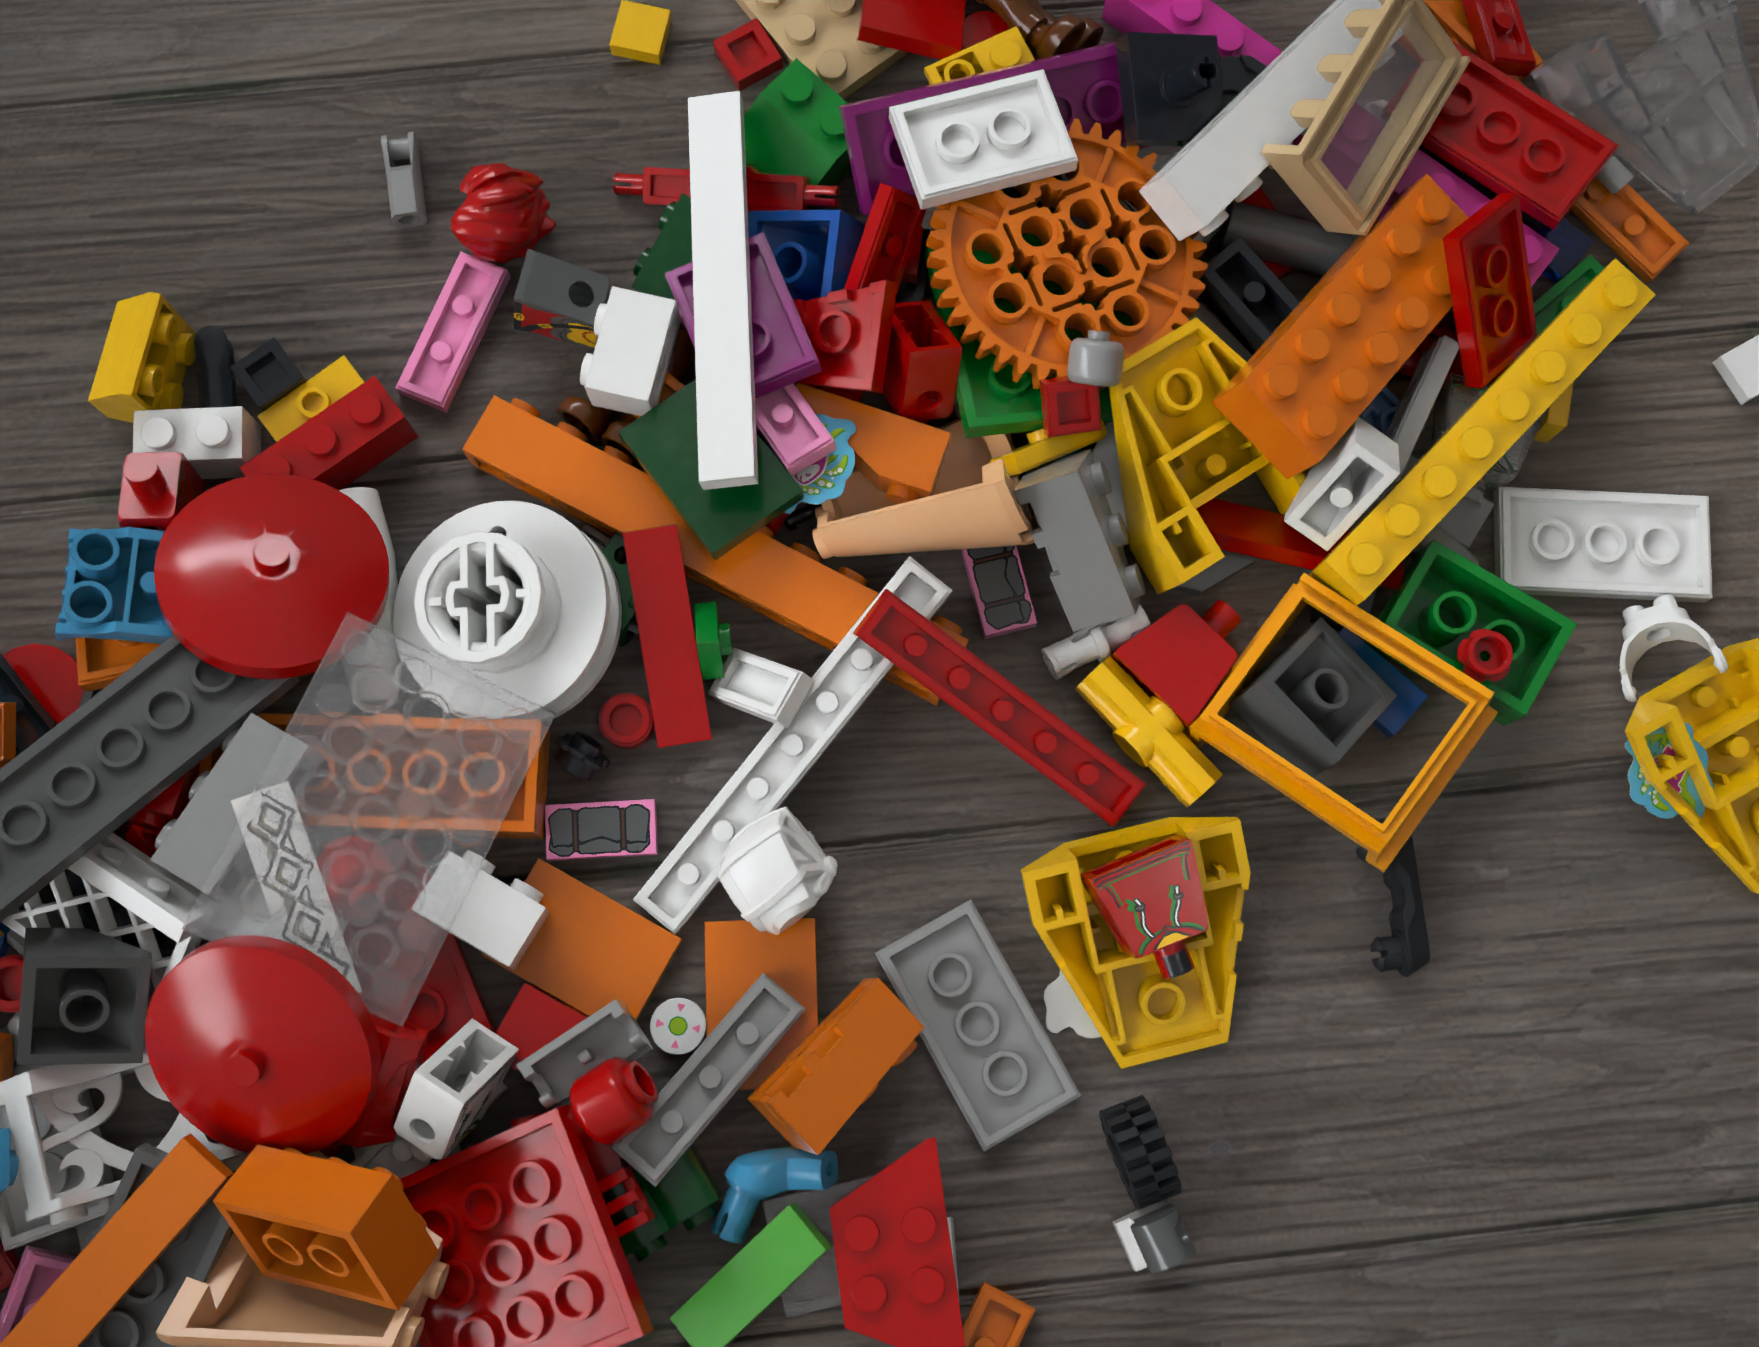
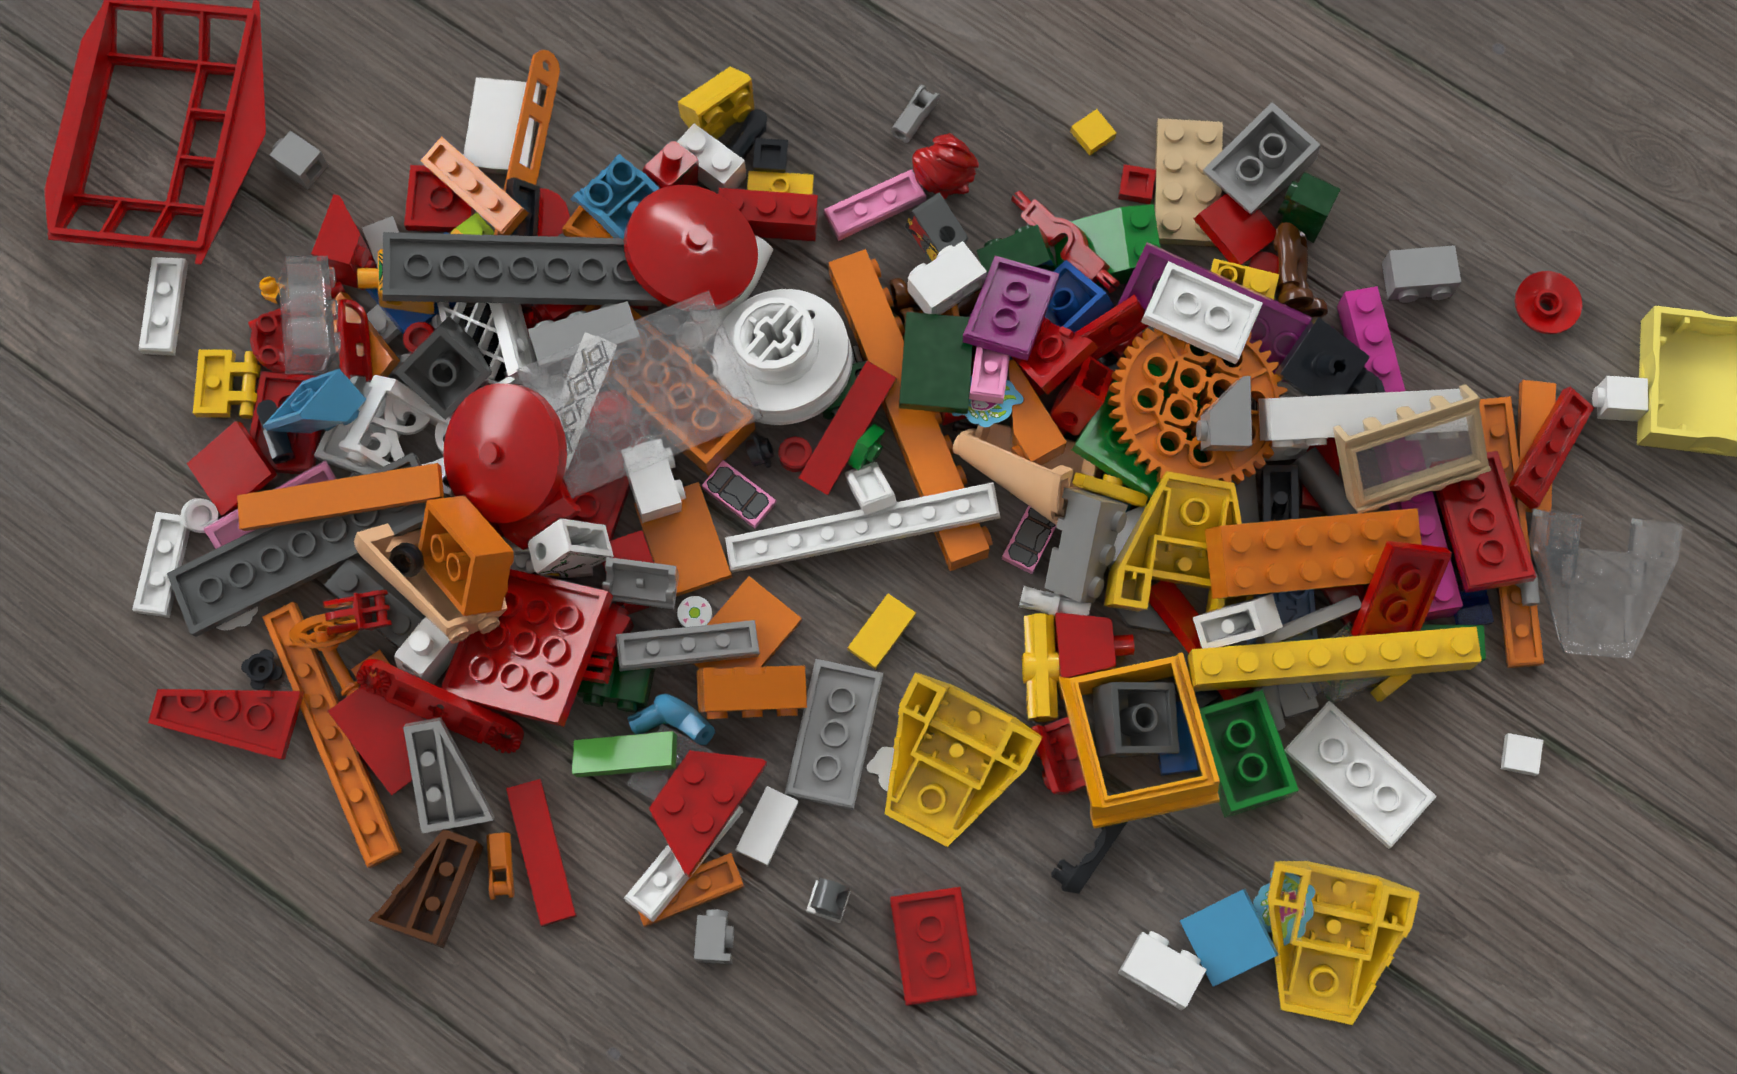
camera: 45 degrees right, 5 degrees down
(253, 1294) = (400, 562): none -> black plate
(612, 1100) = (635, 612): red head -> none
(722, 292) = (1013, 284): white tile -> none
(775, 871) = (801, 575): white piece -> none
(923, 849) = (881, 631): none -> yellow tile
(997, 1209) = (767, 826): none -> white tile
(999, 707) = (975, 593): red tile -> none
(1069, 407) = (1134, 474): red tile -> none
(1095, 360) = (1161, 460): light grey piece -> none
(1129, 241) = (1228, 420): none -> light grey slope
(1140, 1152) = (856, 853): black tyre -> none
(1152, 902) = (964, 741): red torso -> none
(1267, 818) = (1059, 757): none -> red bracket
(1316, 1176) = (933, 946): none -> red tile
(1497, 648) = (1243, 760): red plate -> none
(1599, 970) = (1163, 970): none -> white brick
(1638, 863) = (1229, 937): none -> dark azure tile
(1656, 625) = (1340, 833): white helmet -> none

